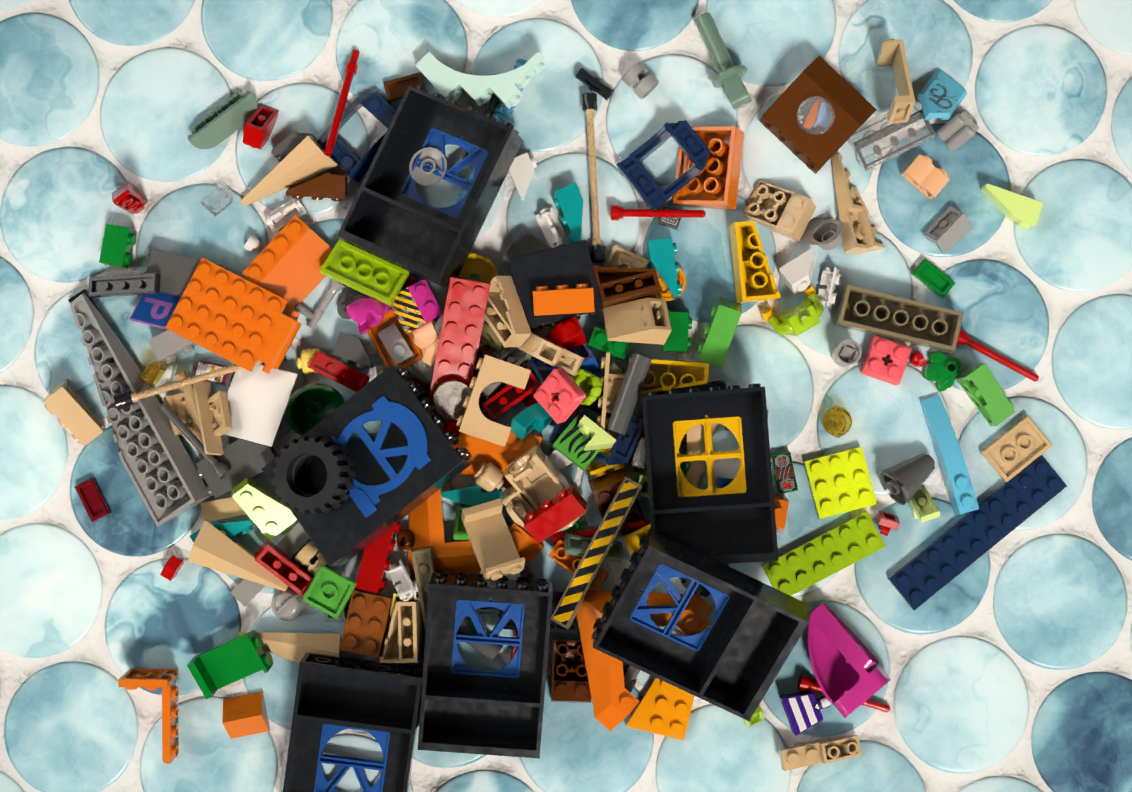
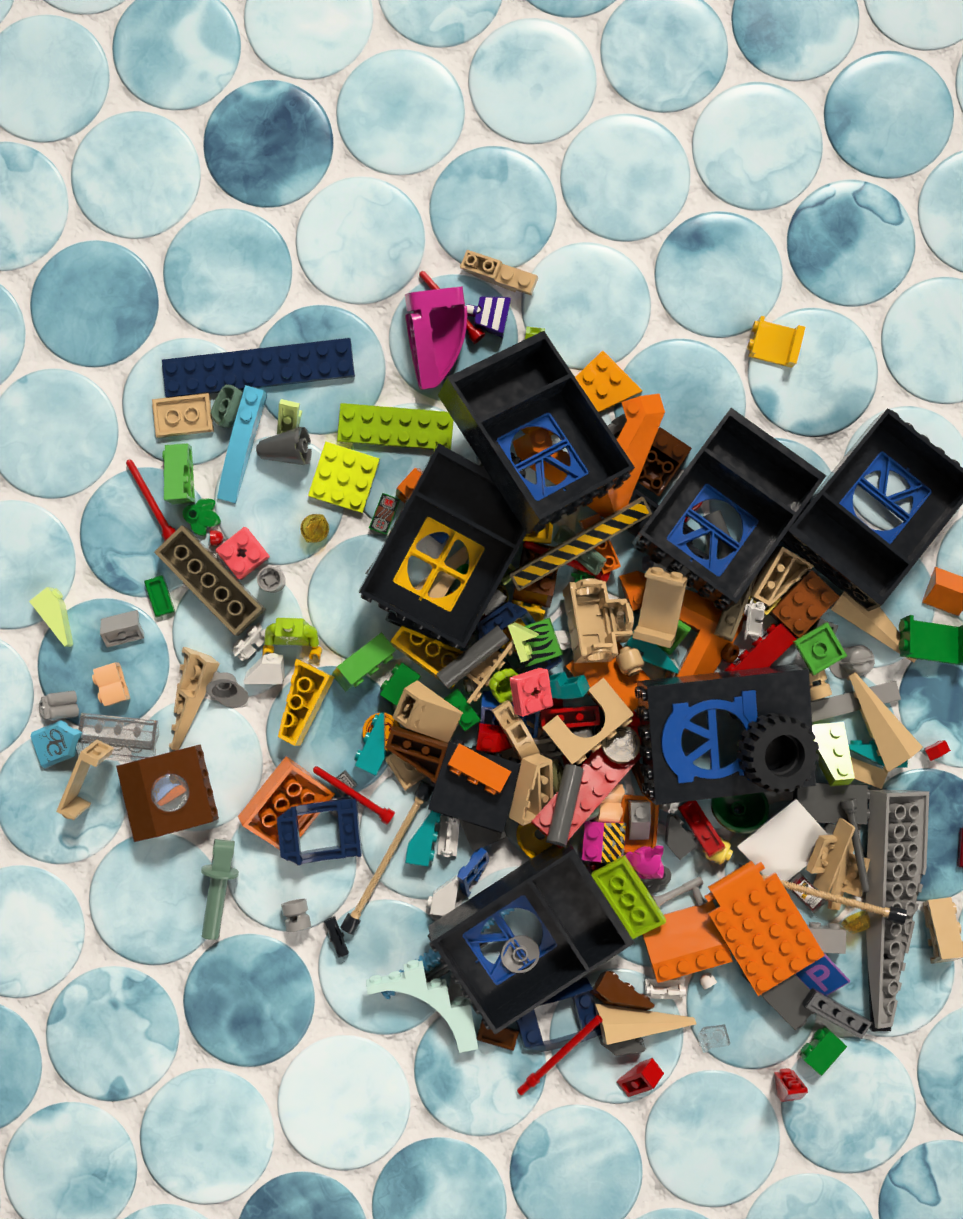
camera: 150 degrees left, 0 degrees up
(223, 120) = (669, 1102): sand green brick -> none
(283, 567) = (845, 692): red brick -> none
(469, 315) = (565, 805): none -> dark grey brick
(513, 211) = (472, 870): none -> blue wing
(555, 514) = (595, 596): red brick -> none
(780, 210) = (249, 732): tan slope -> none
(887, 522) = (325, 421): red tile -> none
(983, 480) = (226, 406): none -> sand green piece

